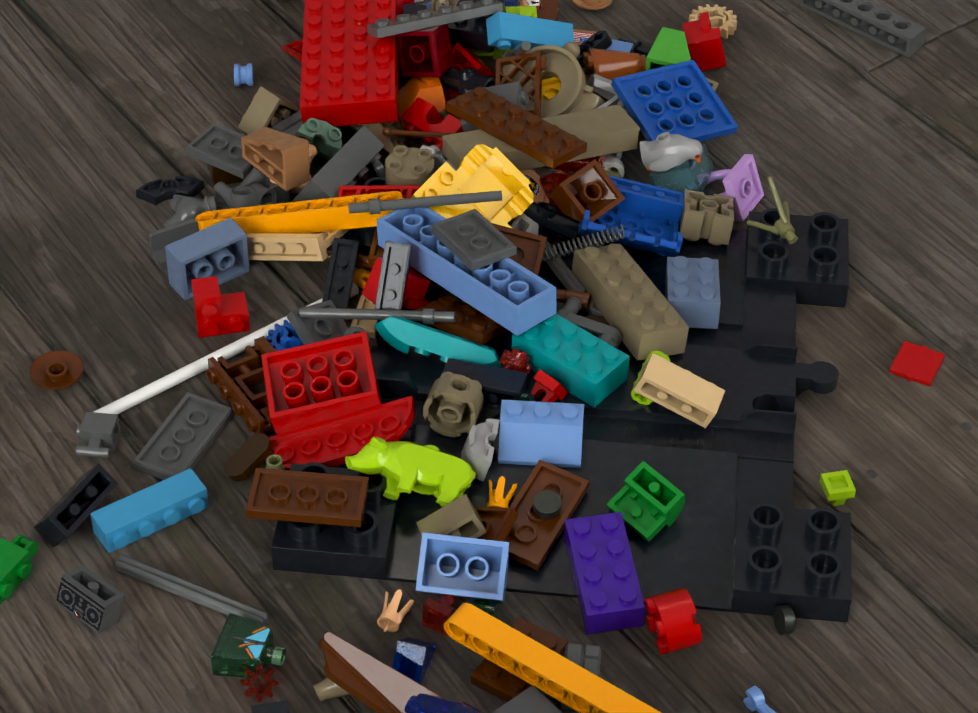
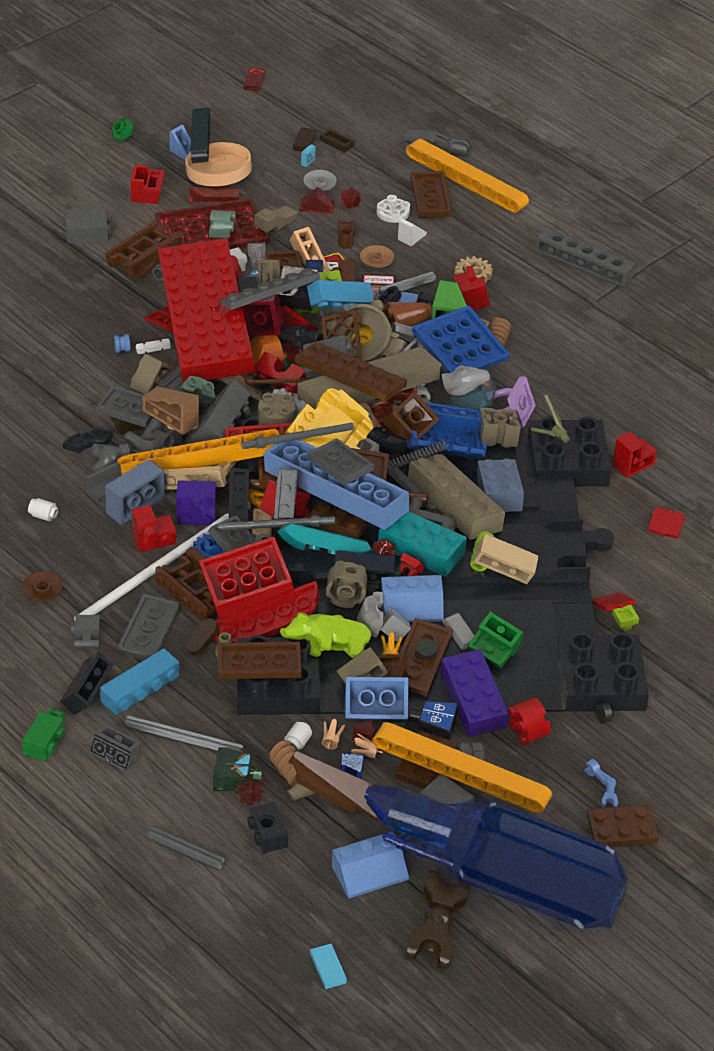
camera: 10 degrees left, 0 degrees up
(86, 271) = (43, 509): none -> white brick
(281, 81) = (153, 346): none -> white axle
(283, 279) = (196, 502): none -> dark purple brick
(311, 634) = (280, 756): none -> medium nougat piece
(345, 609) = (299, 735): none -> white brick
(444, 641) = (371, 749): none -> light nougat piece
(511, 465) = (395, 623): none -> light grey panel
(544, 603) = (436, 717): none -> torso
(590, 24) = (378, 279): none -> tile
(601, 482) = (461, 632): none -> light grey tile
(630, 30) = (411, 282): none -> dark grey axle
(733, 96) = (500, 329): none -> medium nougat piece
(823, 463) = (613, 601): none -> red piece
(883, 268) = (633, 454): none -> red brick

